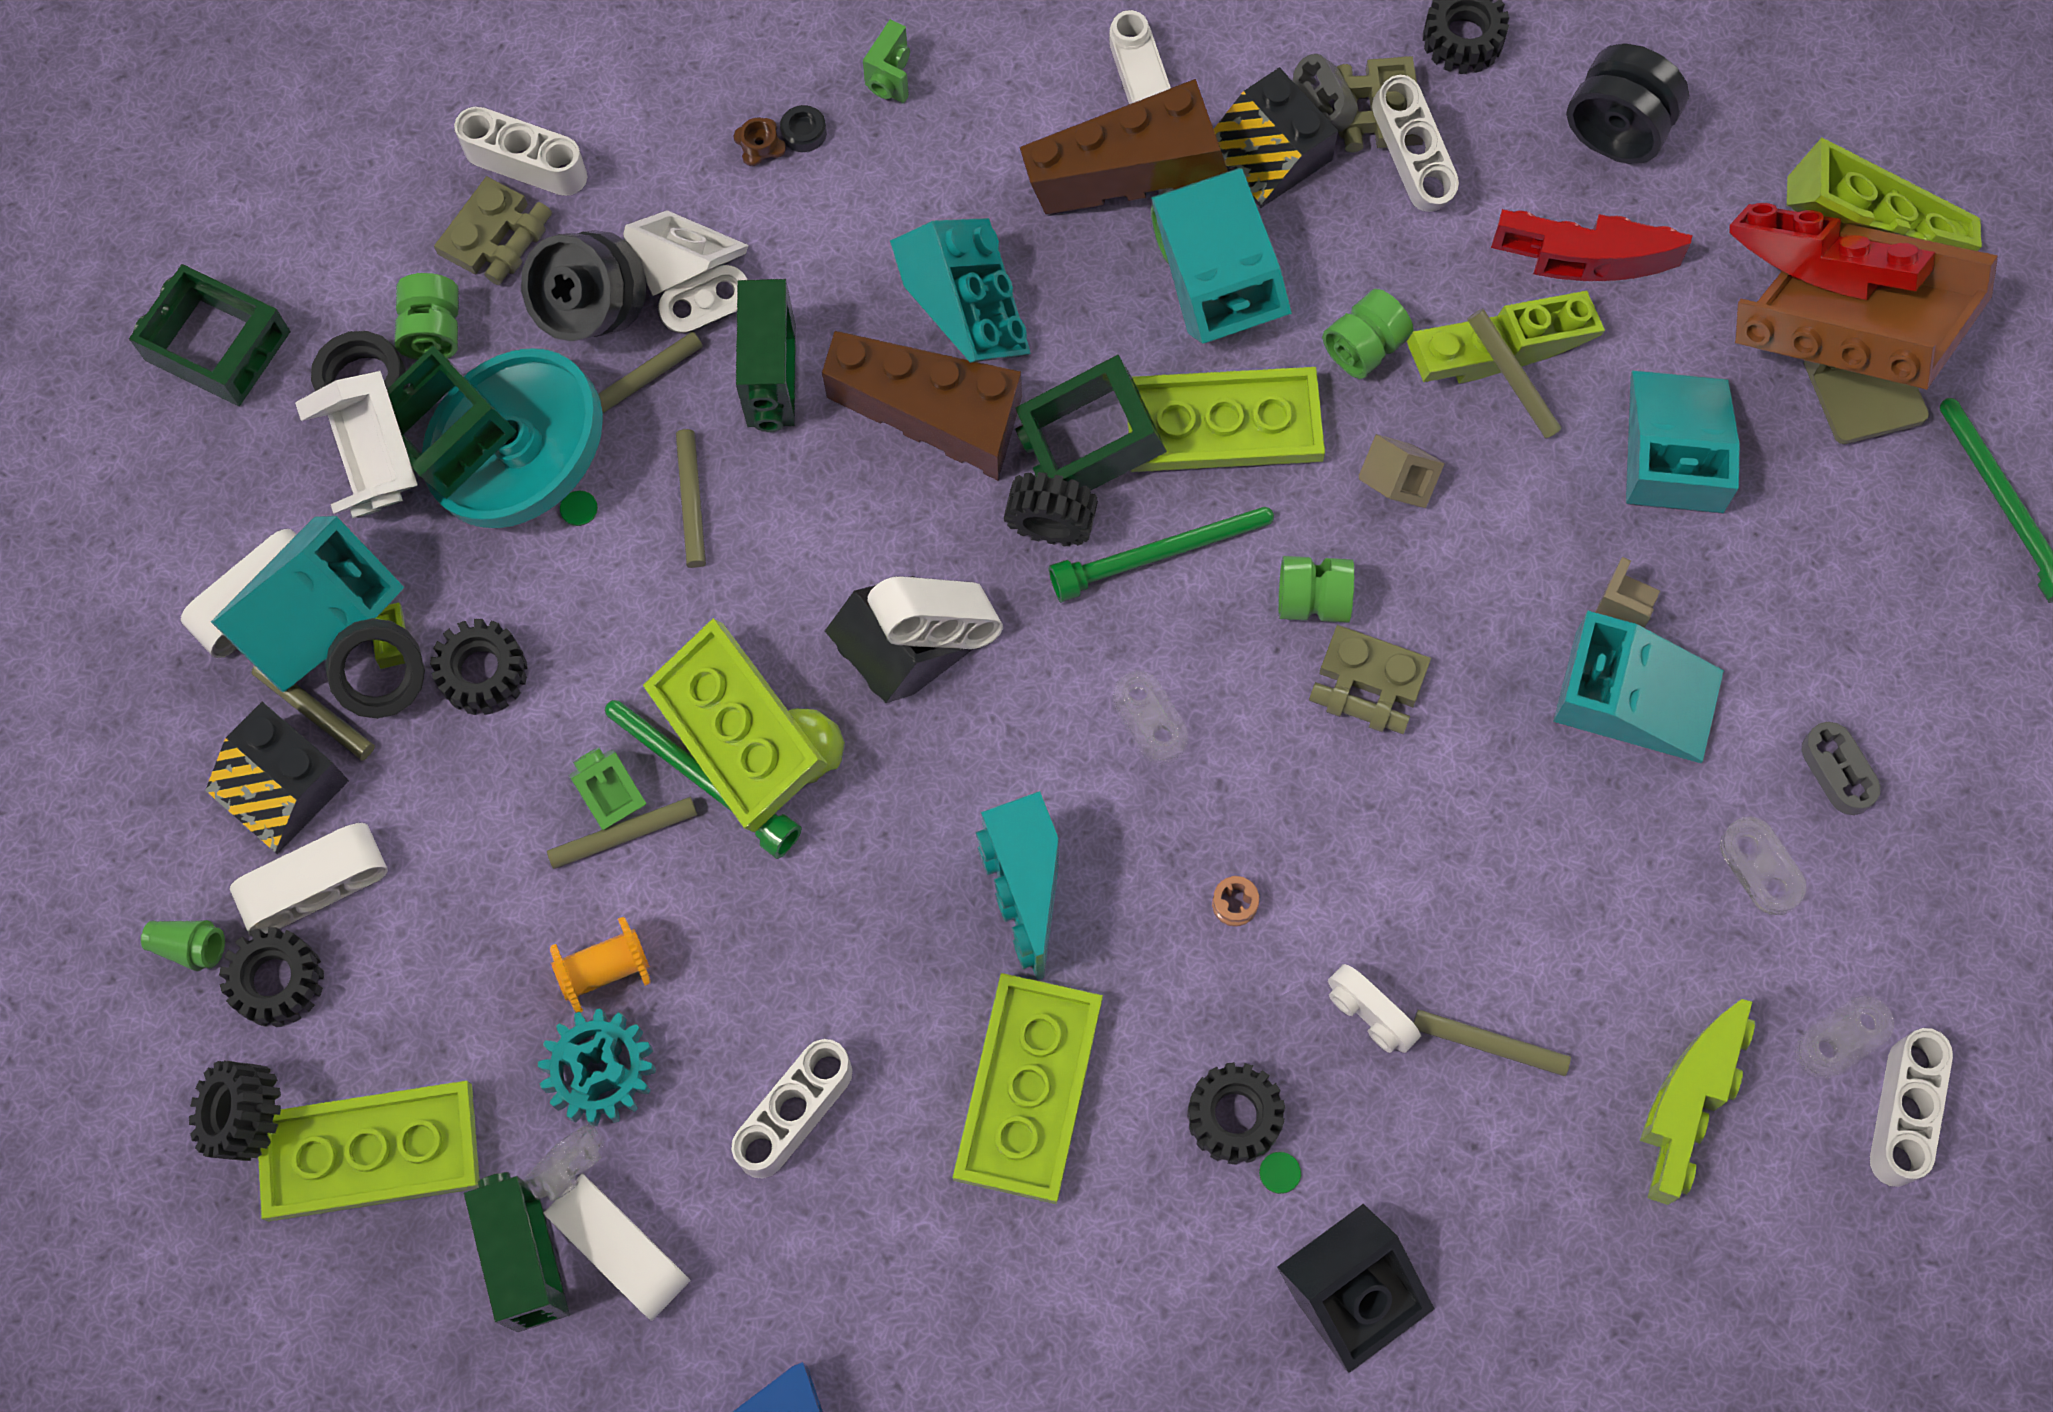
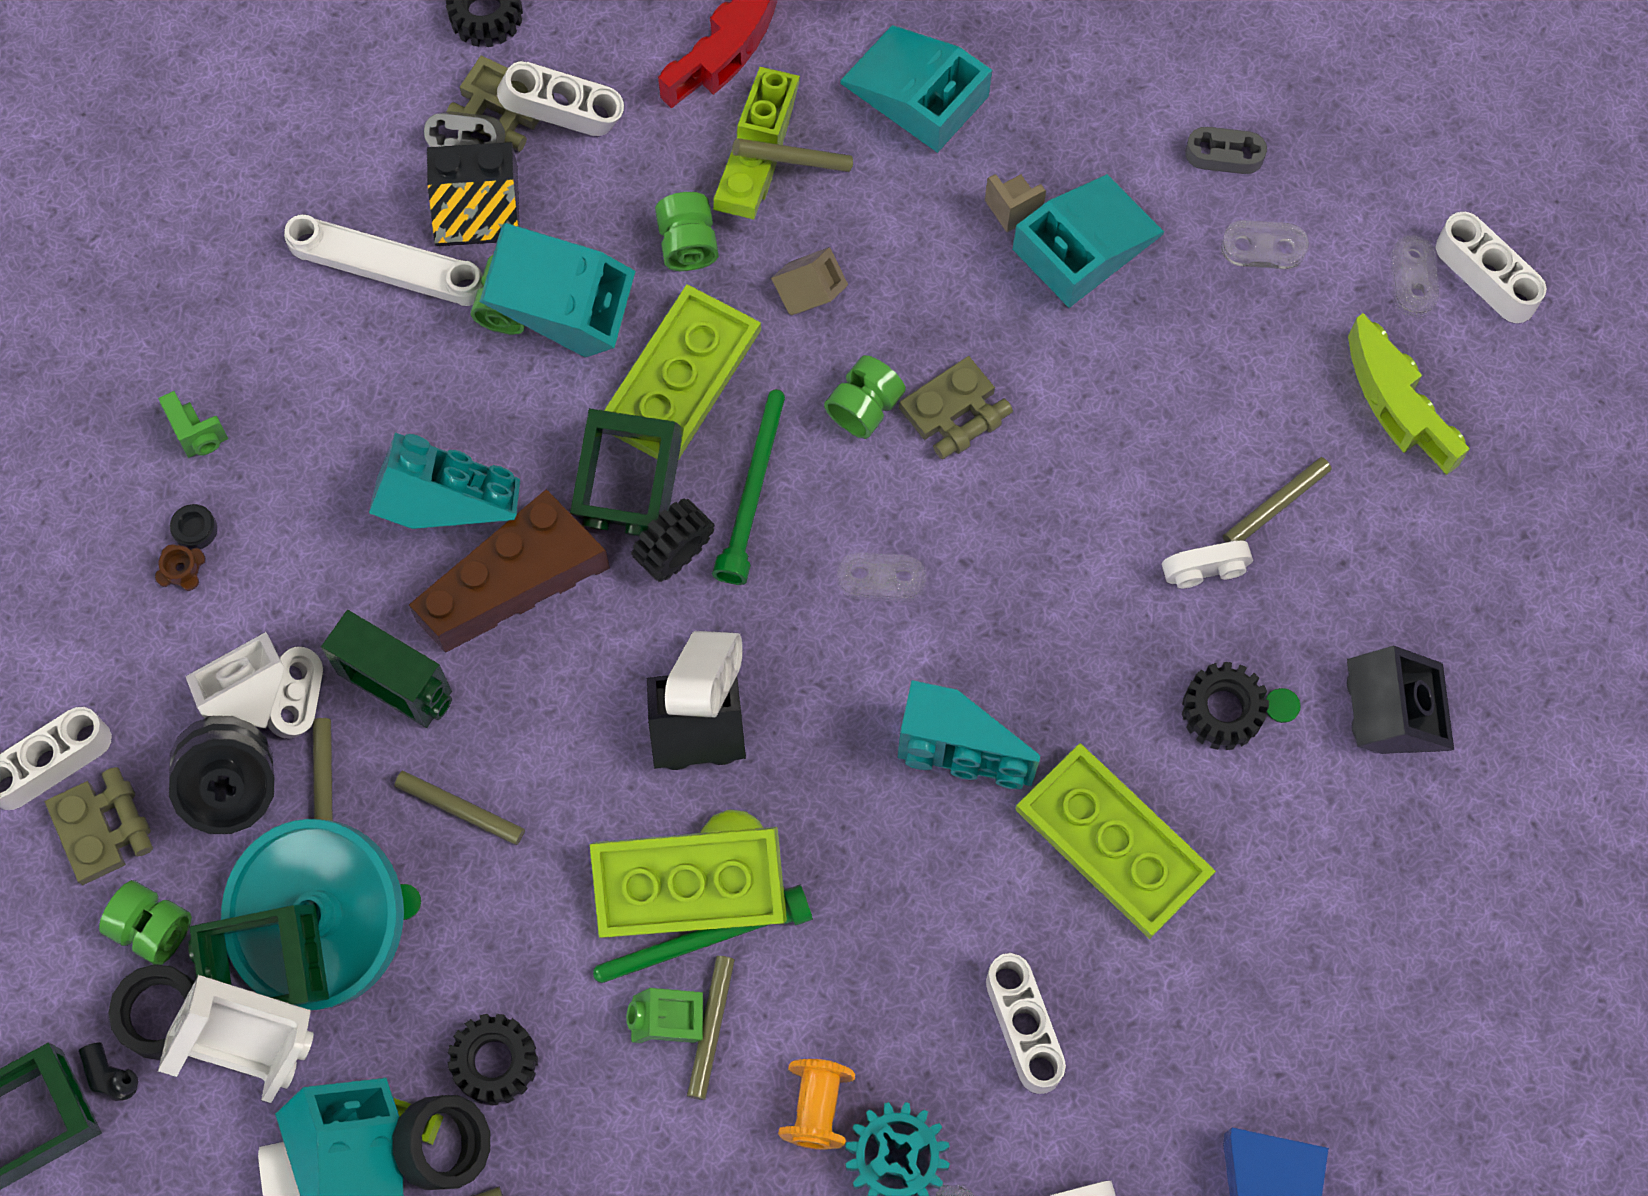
camera: 60 degrees left, 0 degrees up
(282, 375) = (105, 1079): none -> black arm
(1126, 152) = (418, 295): reddish brown wedge -> none
(1250, 896) = (1064, 593): nougat bush -> none

